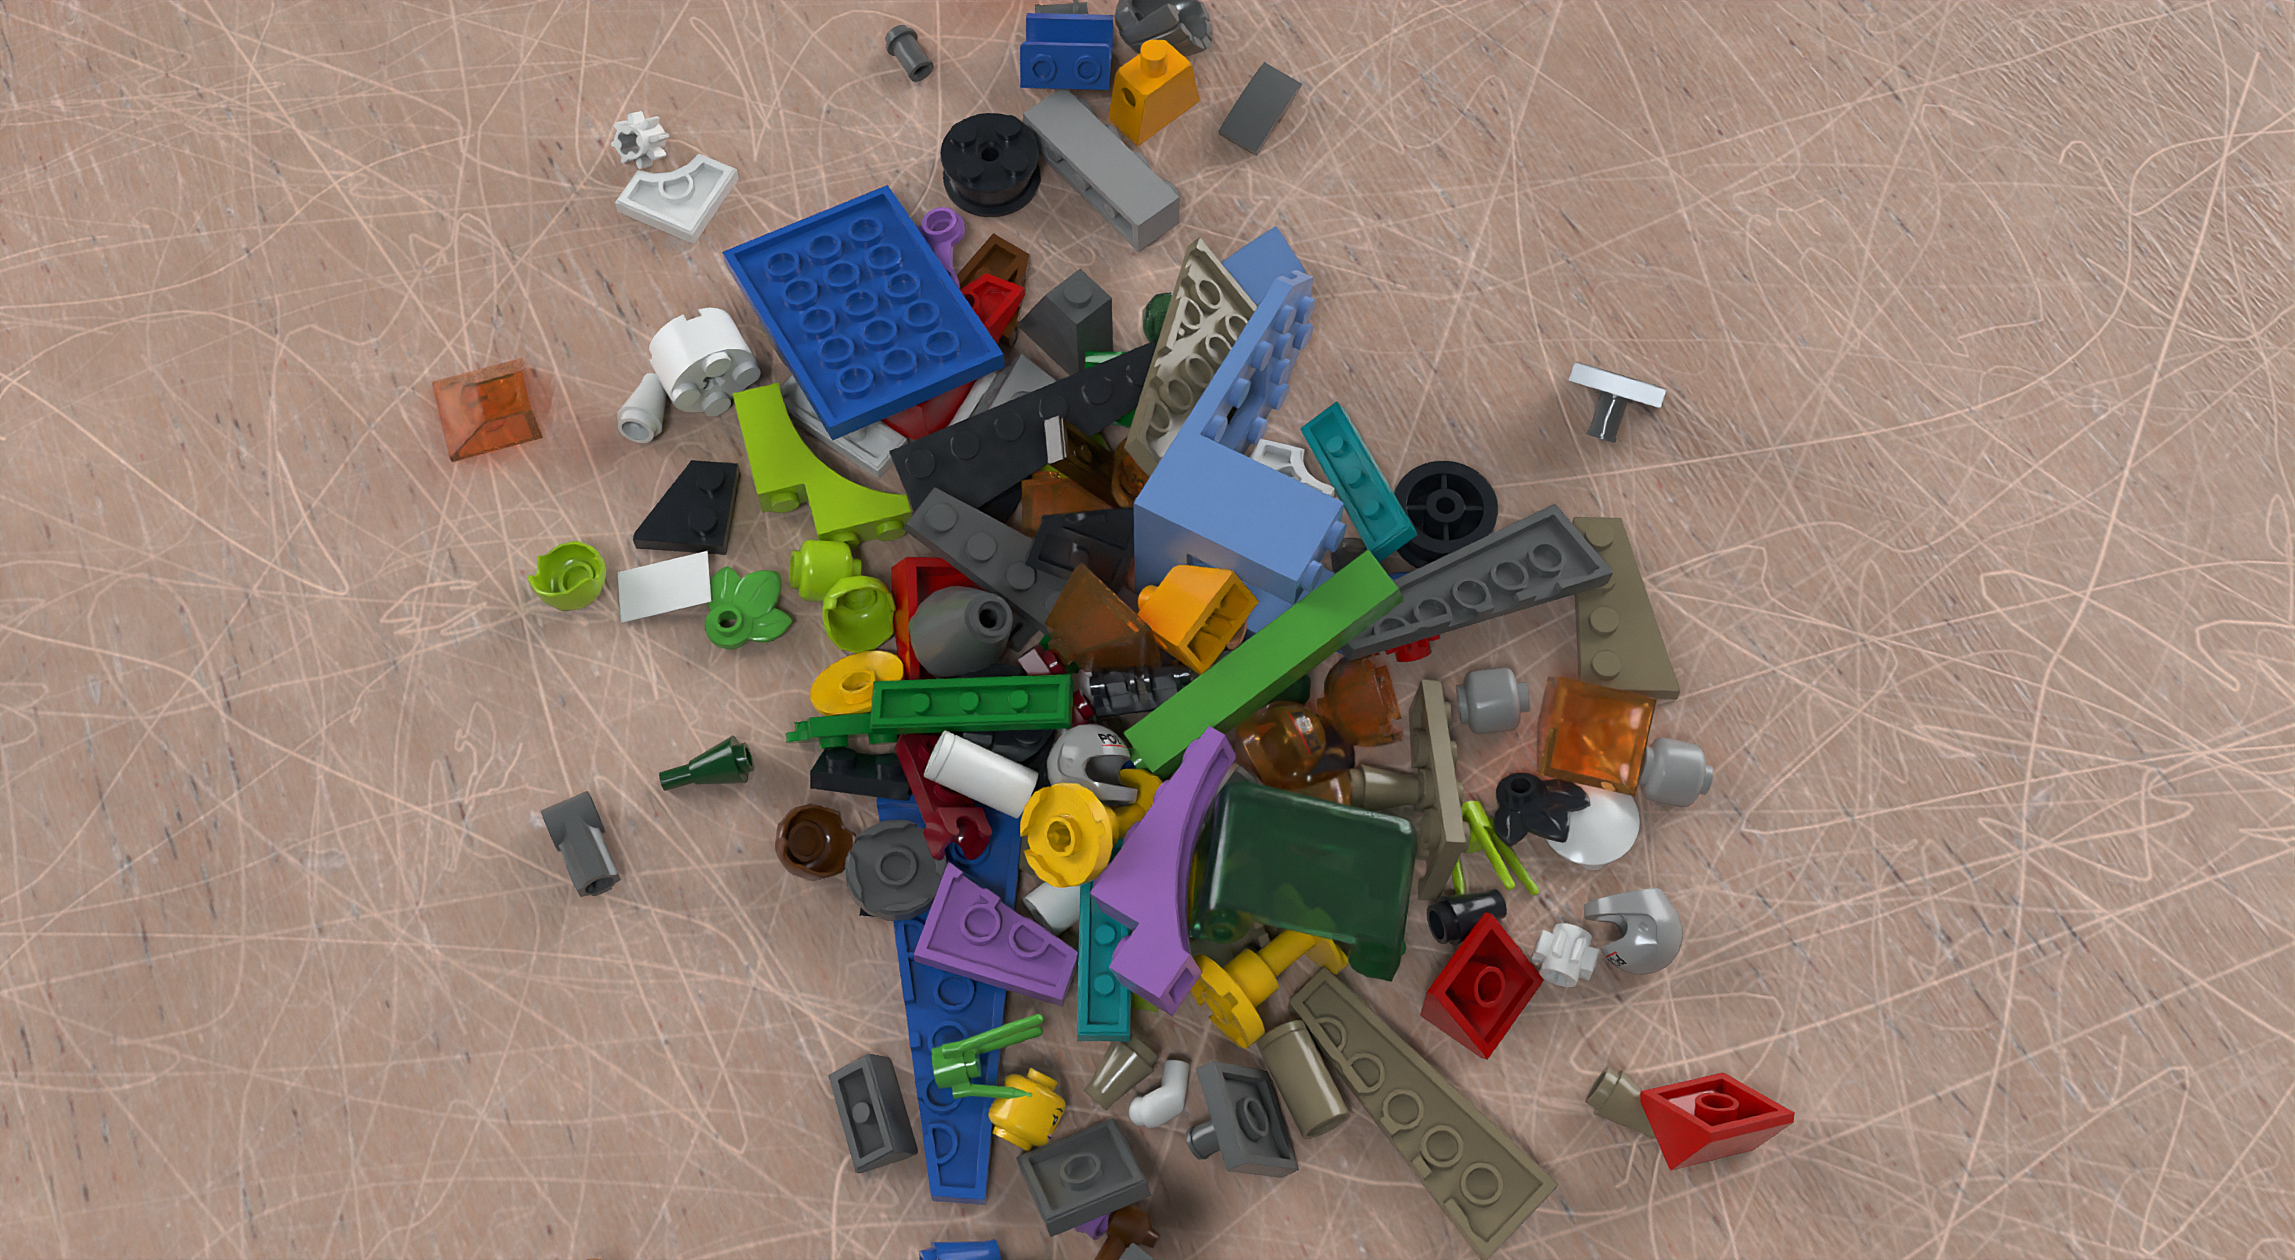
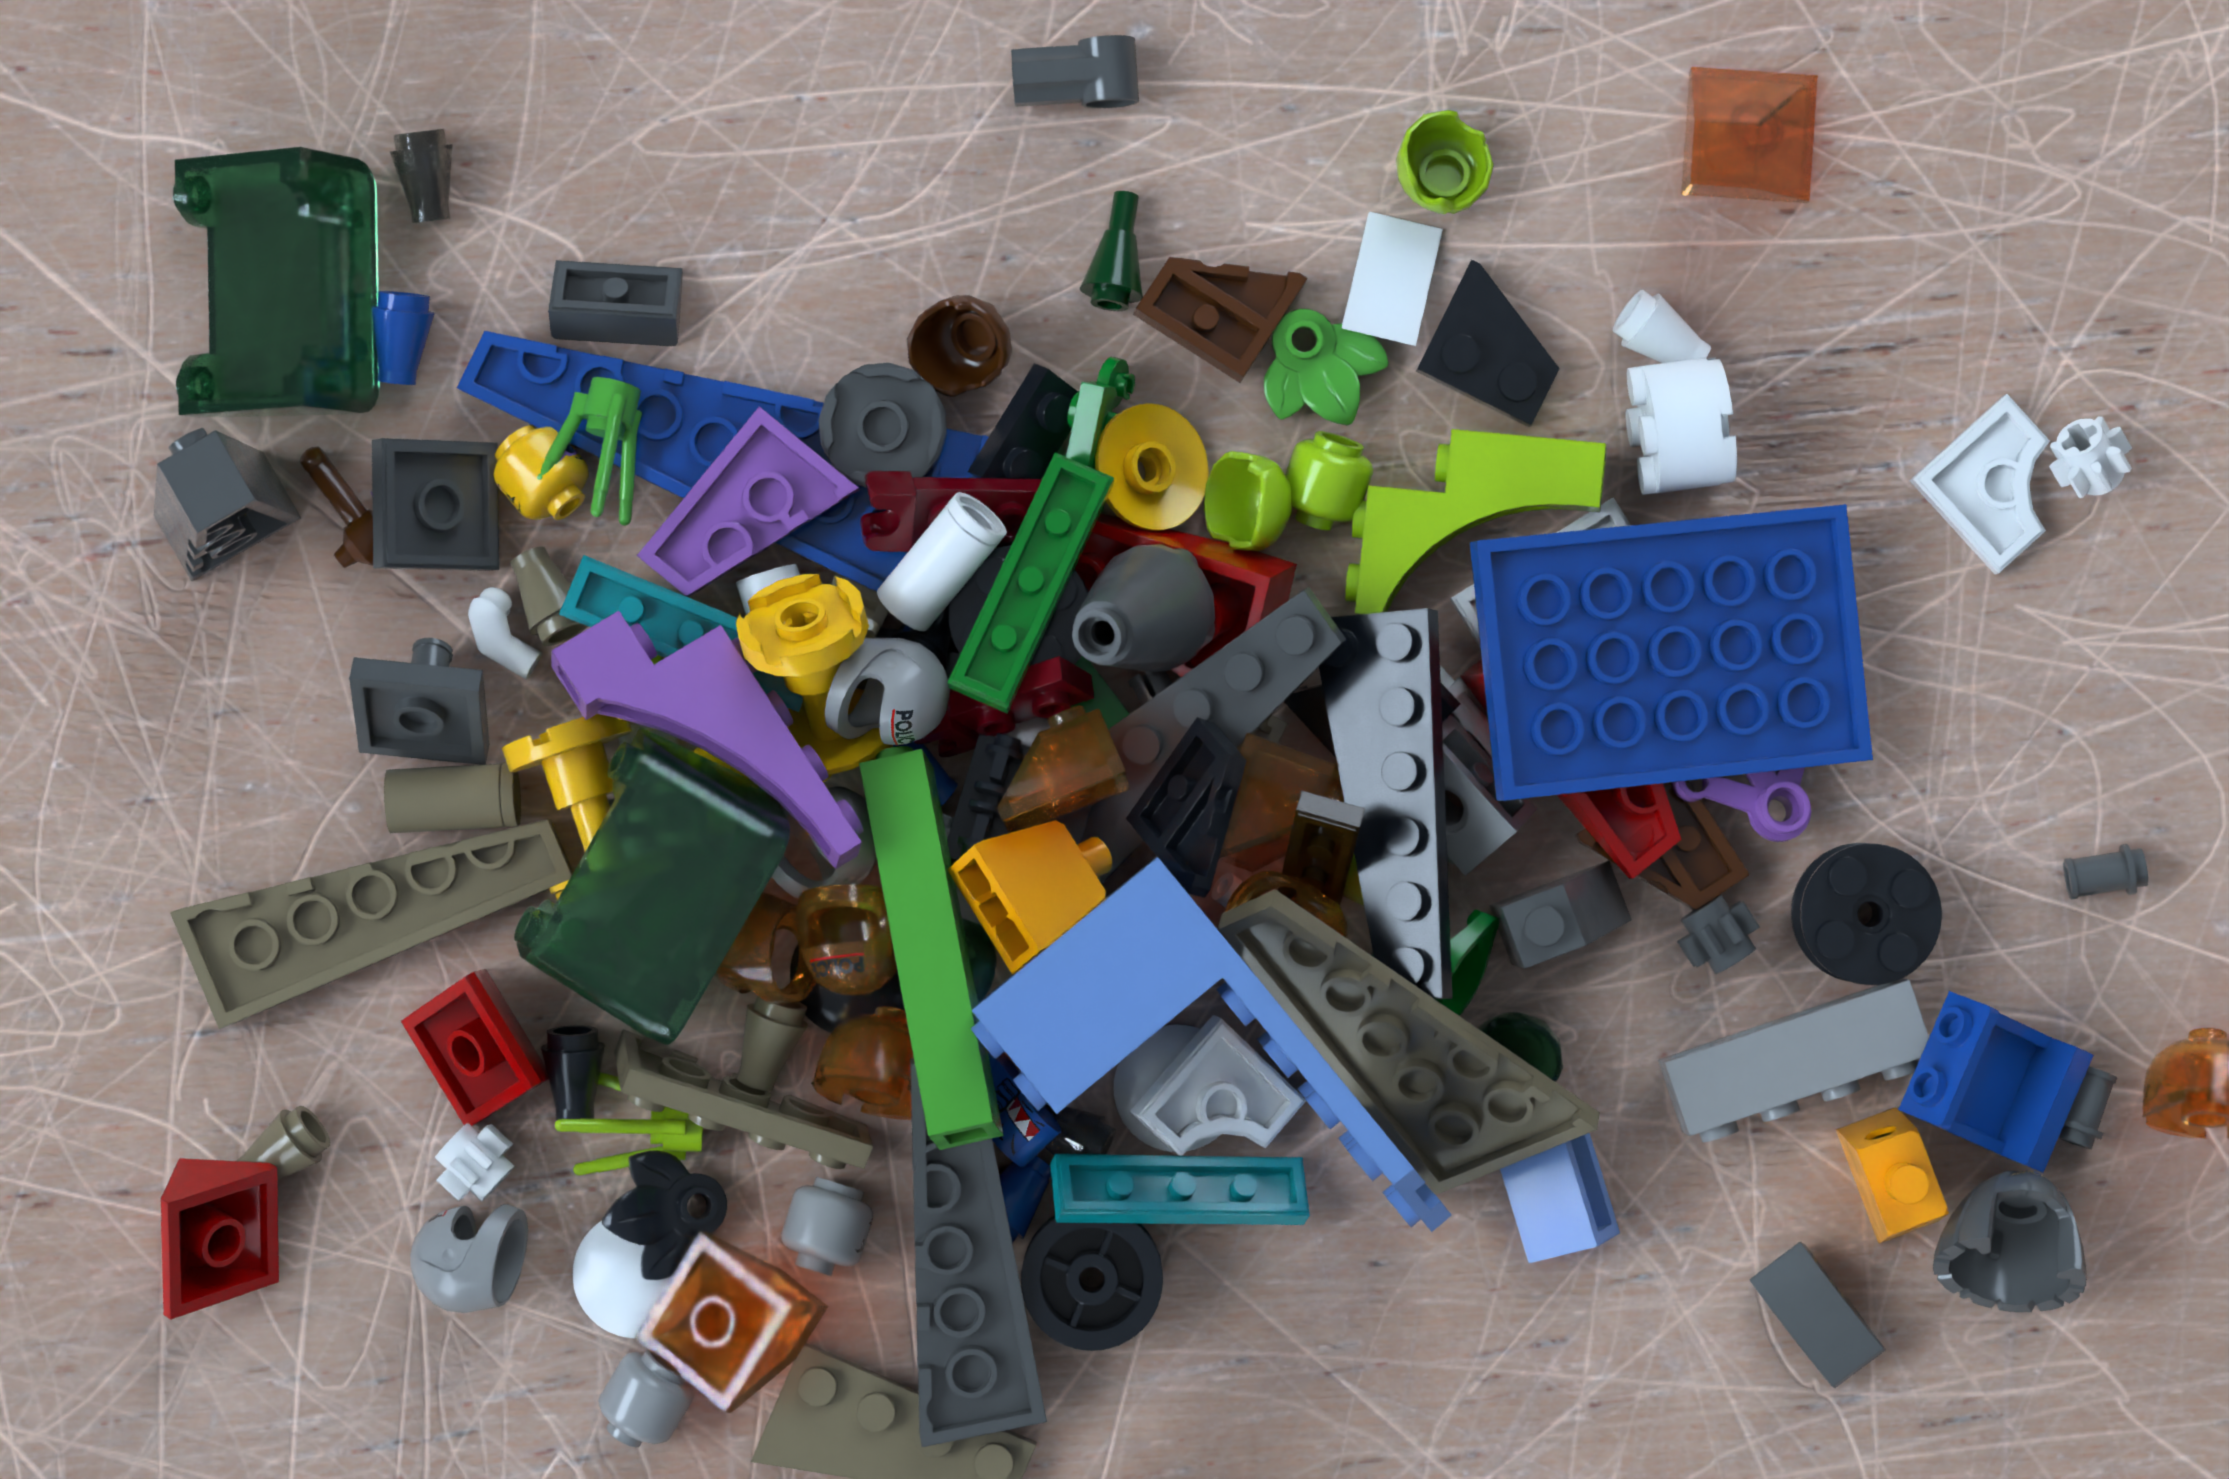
camera: 115 degrees right, 25 degrees up
(727, 685) = (1219, 310): none -> reddish brown wing
(1041, 236) = (1718, 934): none -> dark grey gear

